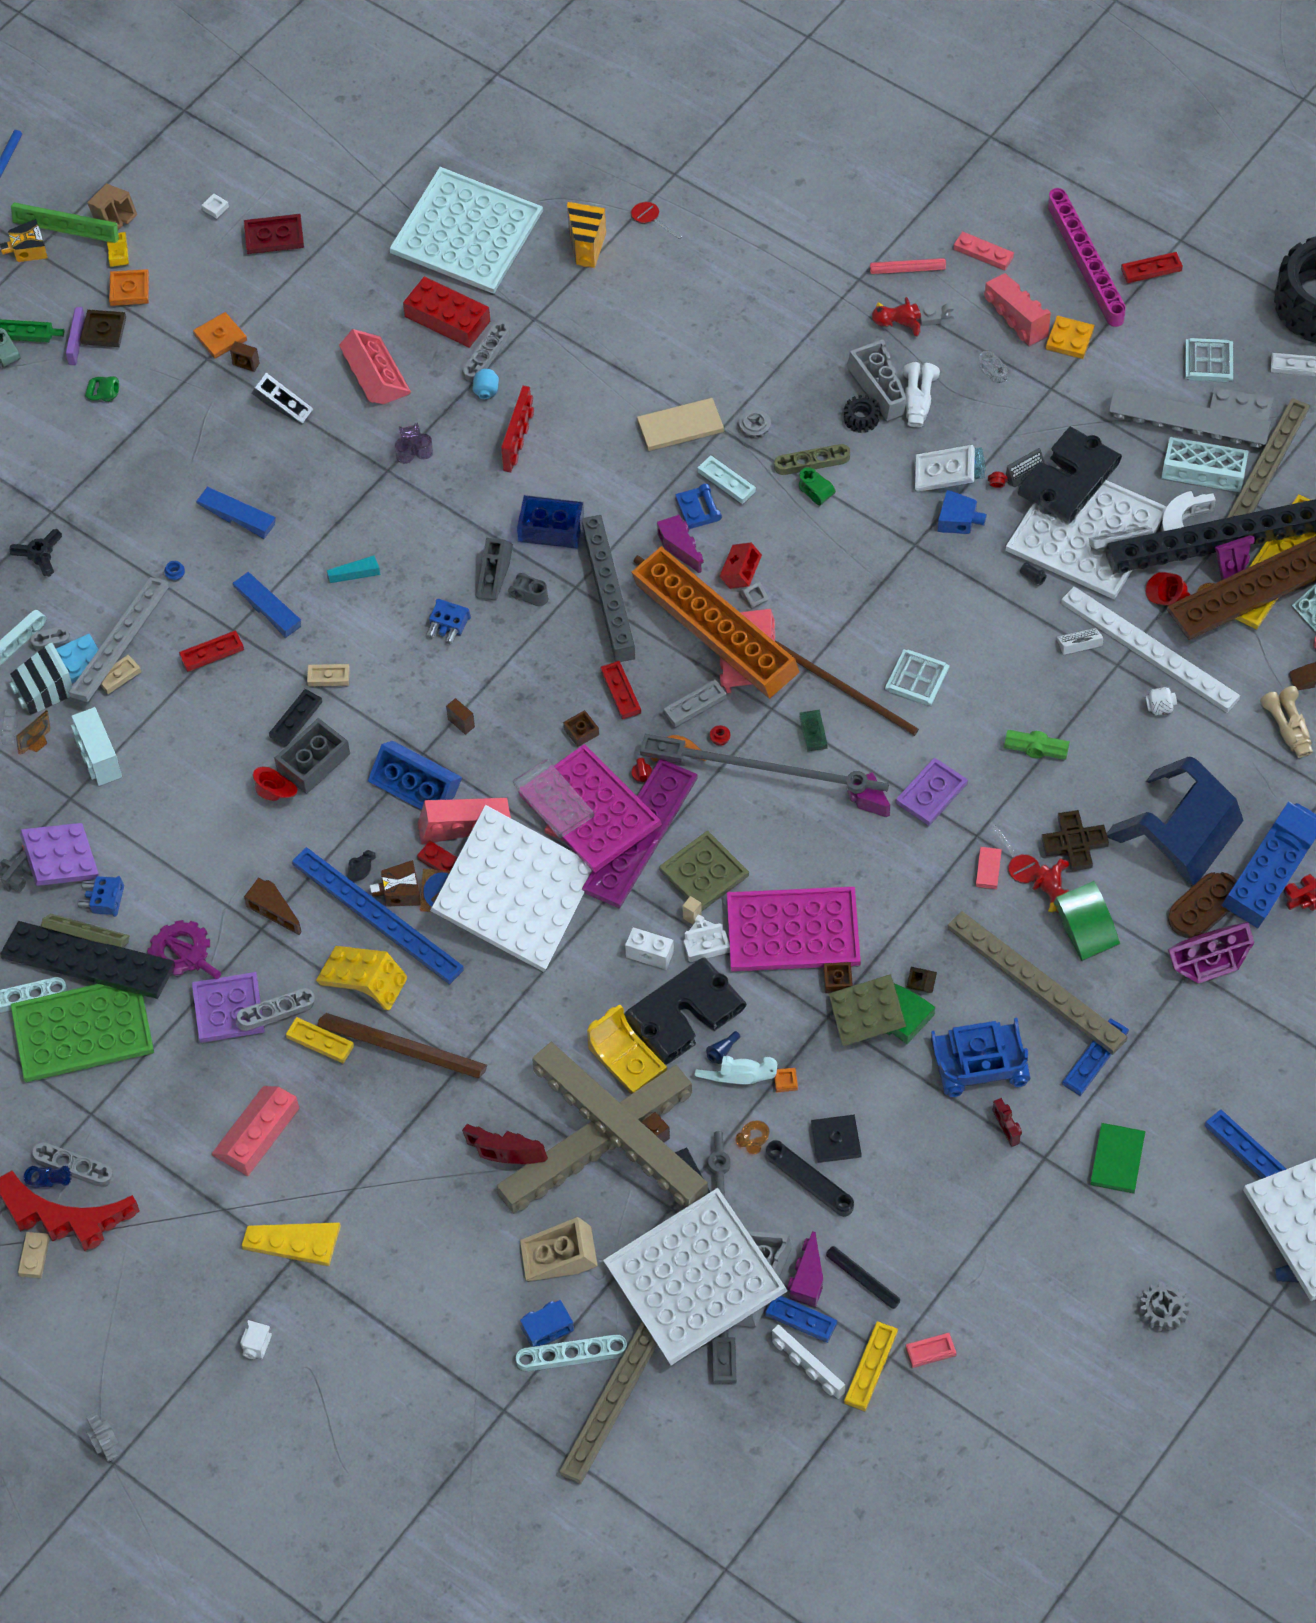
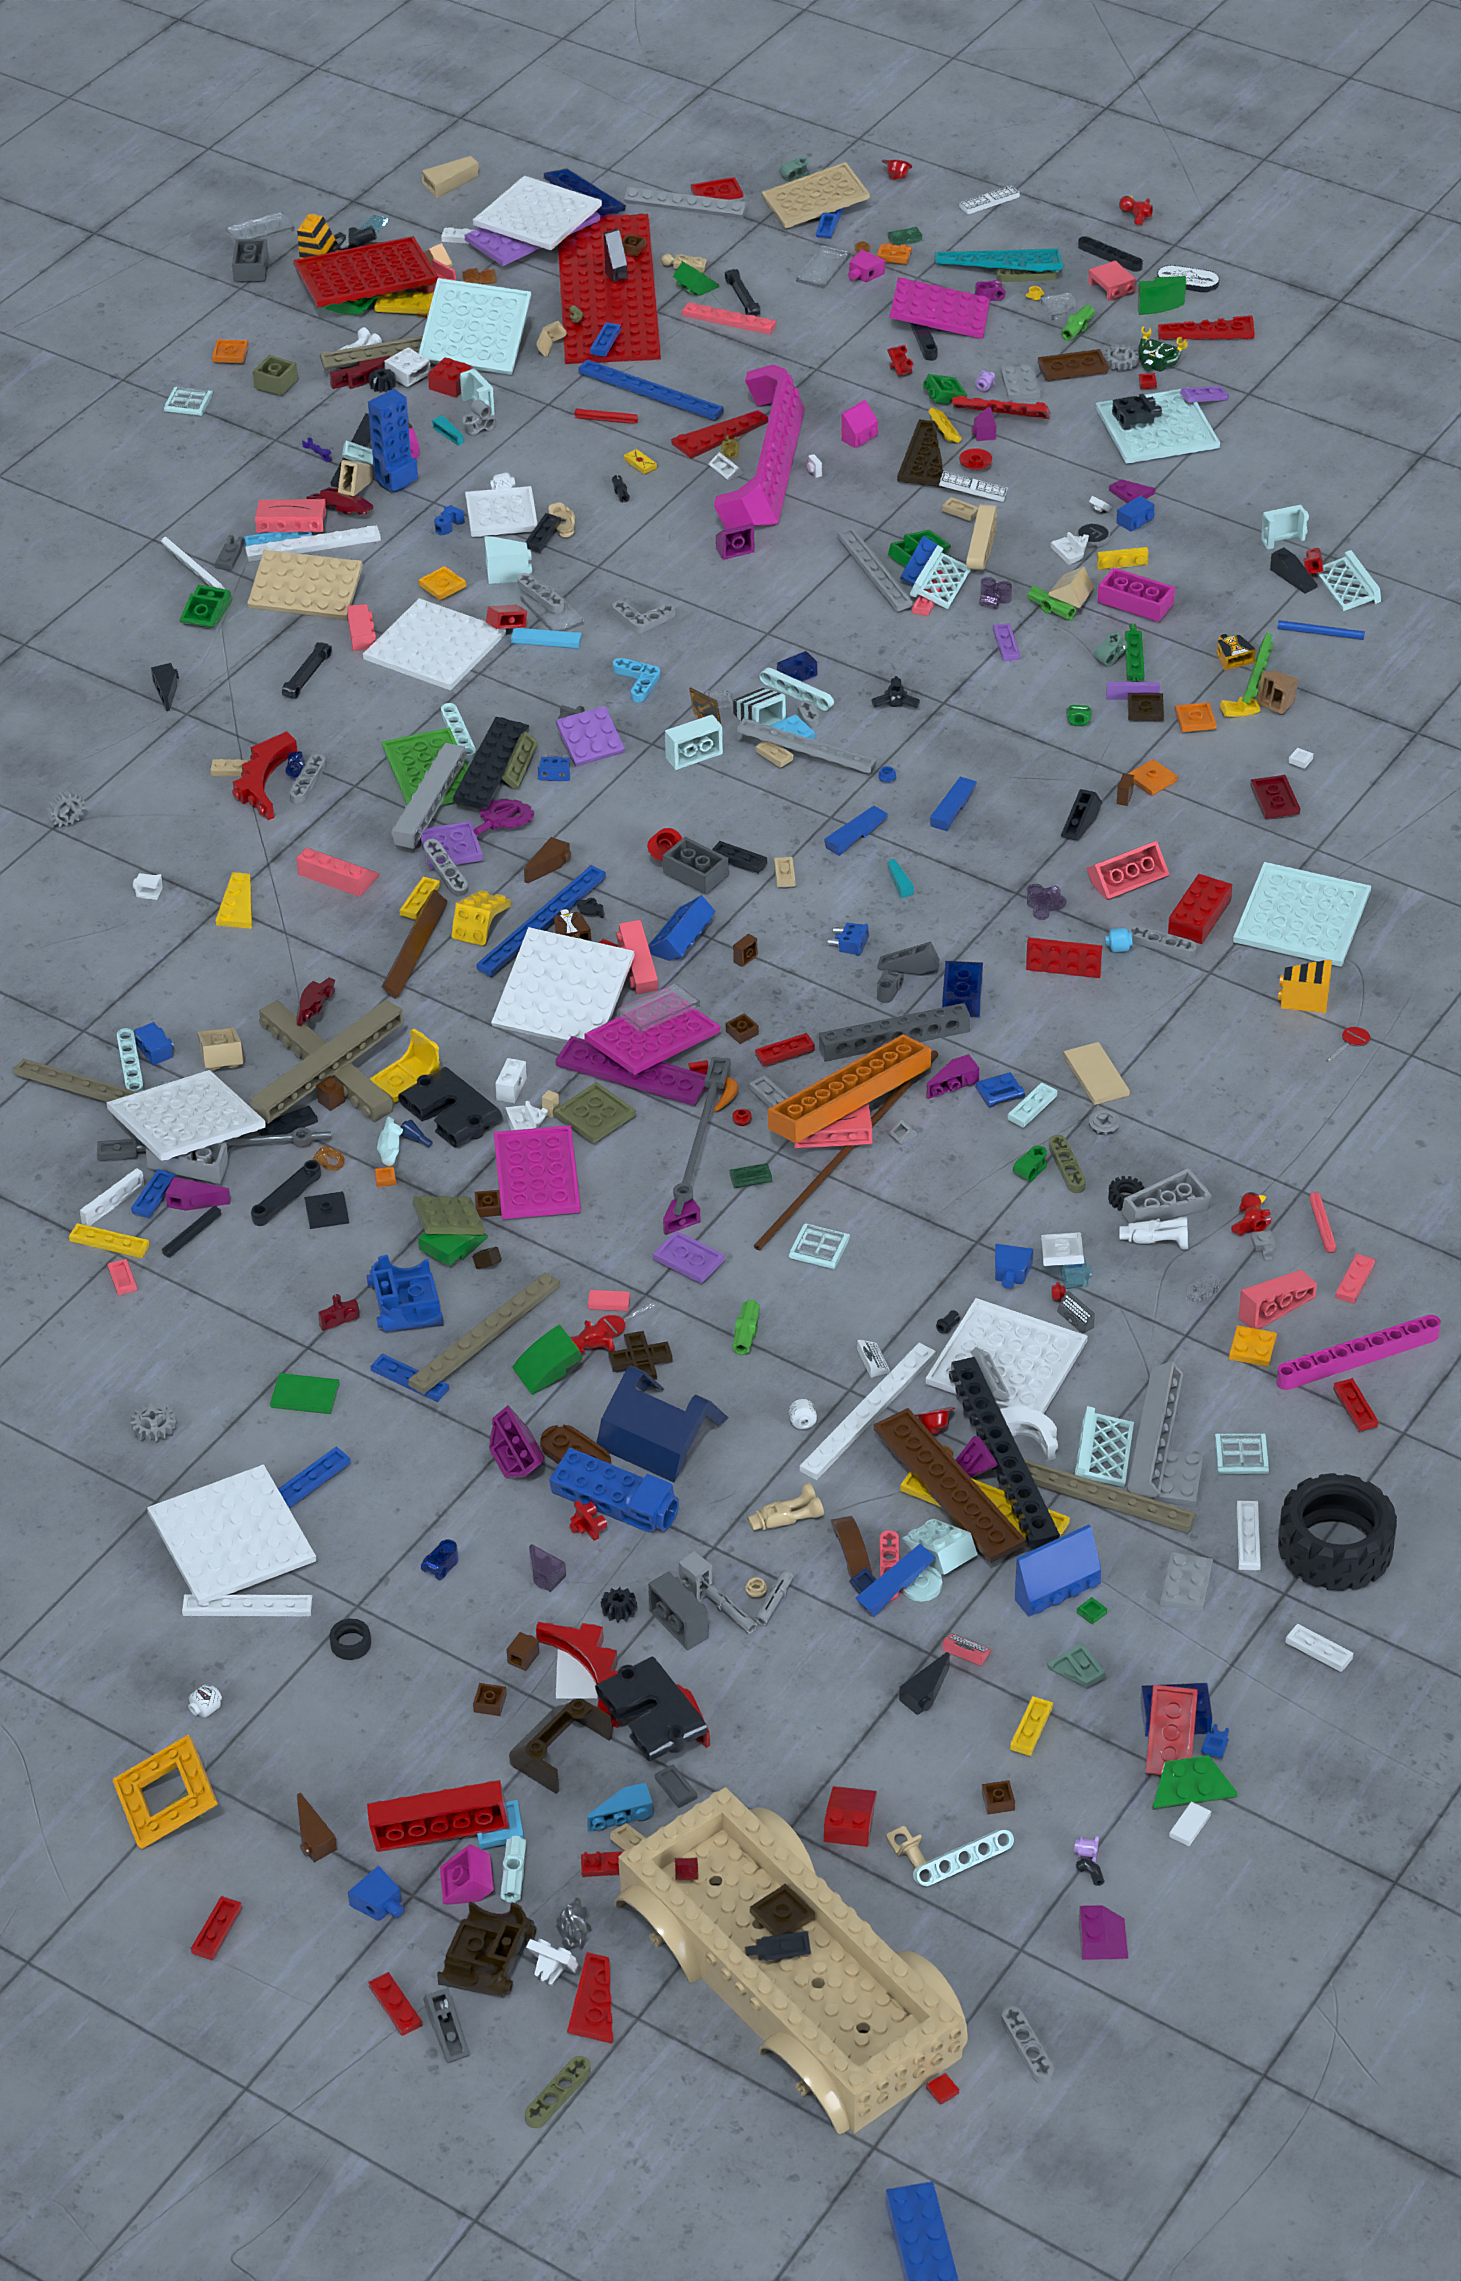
camera: 85 degrees right, 15 degrees down
(148, 1020) = (429, 795): none -> light grey brick
(211, 651) = (803, 802): red plate -> none
(740, 565) = (928, 1114): red brick -> none
(1067, 494) = (1079, 1350): black connector -> none

